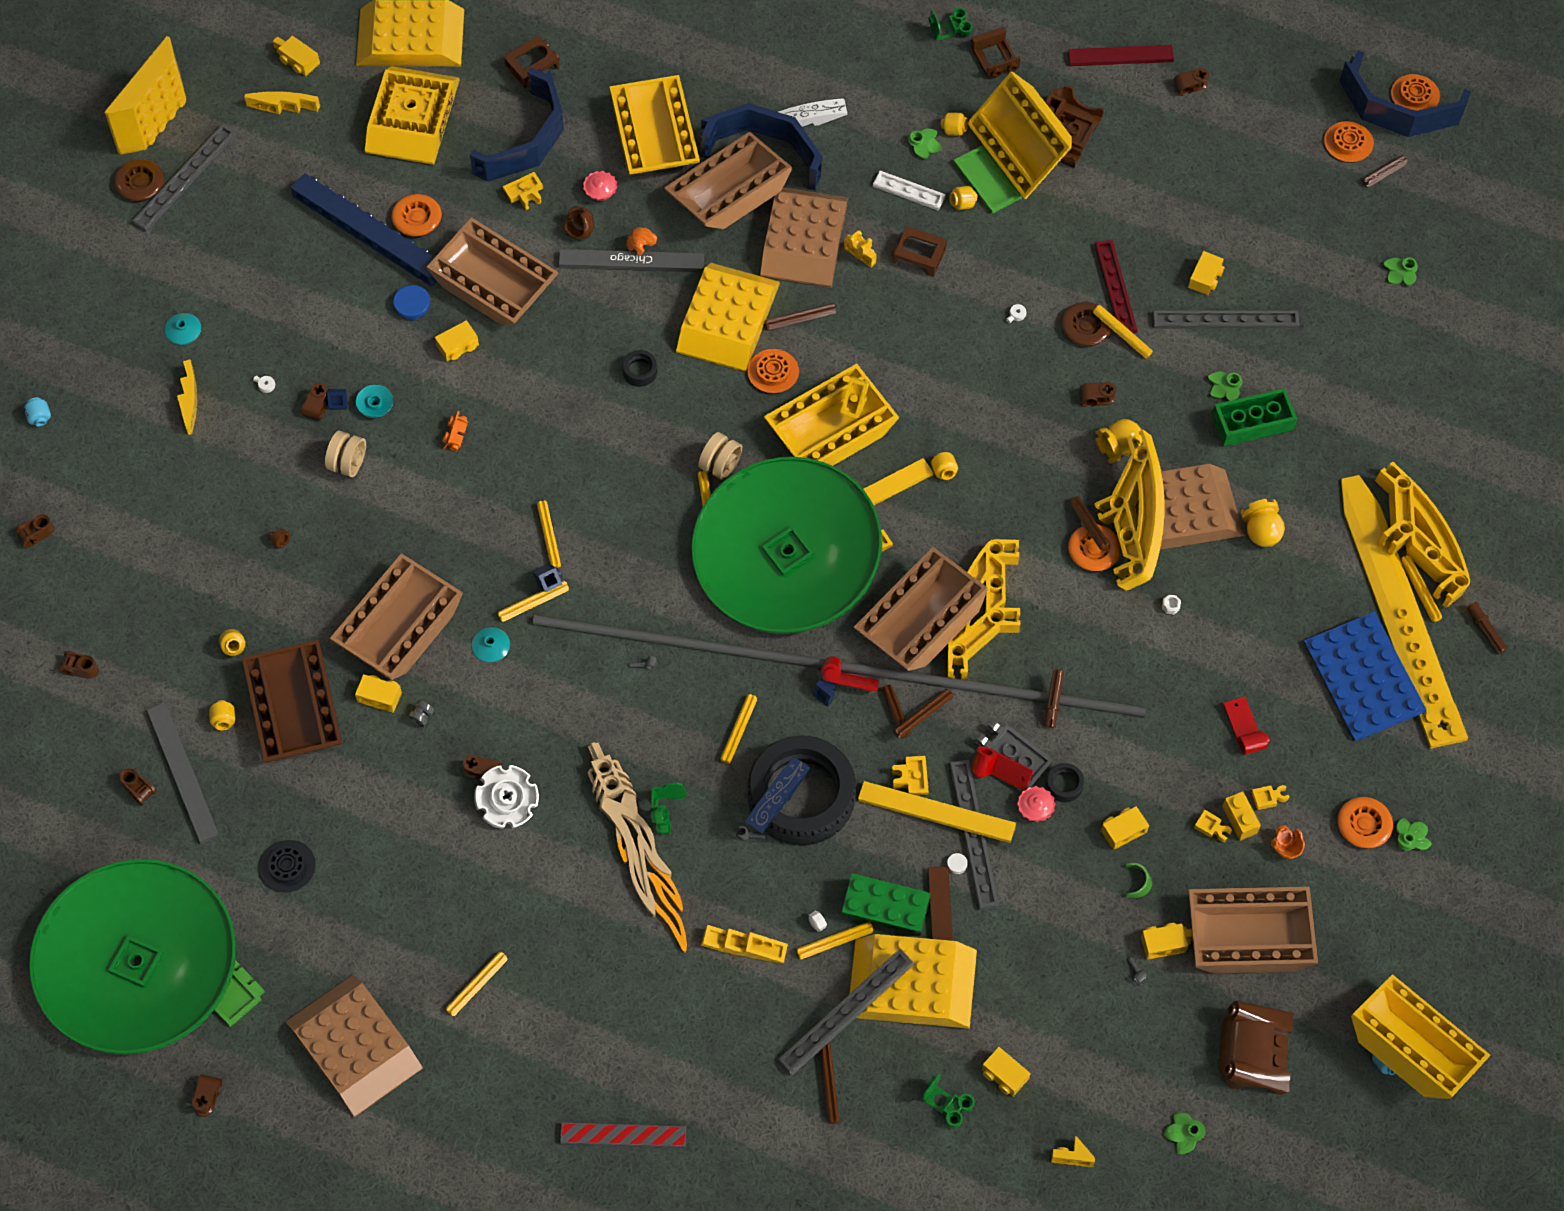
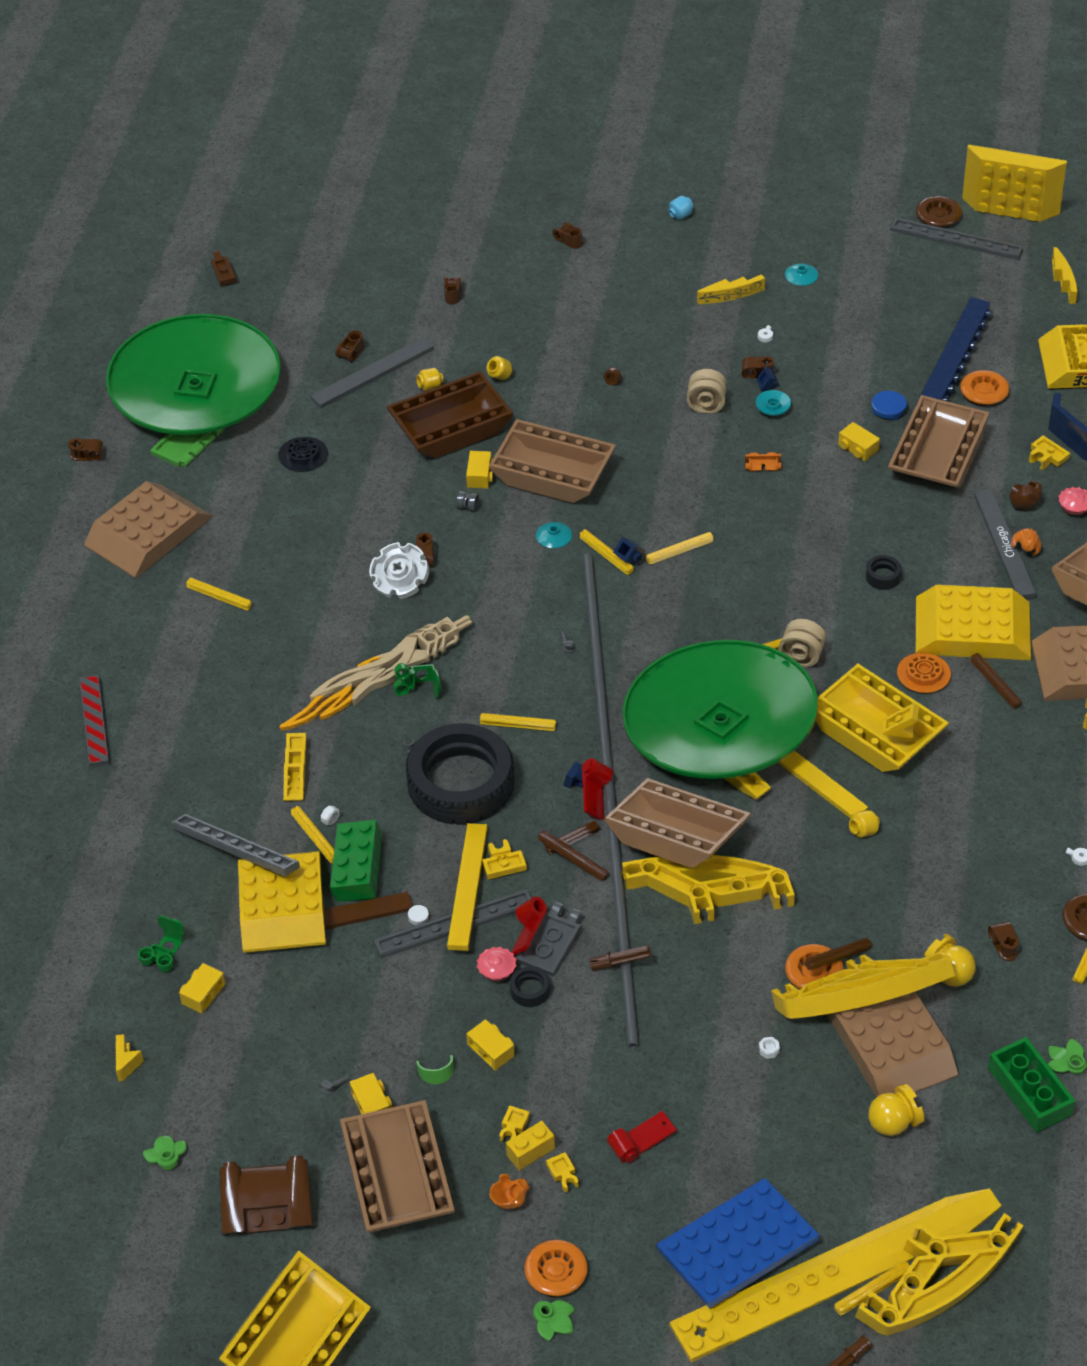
camera: 80 degrees right, 15 degrees down
(777, 794) = (442, 741): dark blue slope -> none
(829, 1084) = (171, 856): reddish brown axle -> none

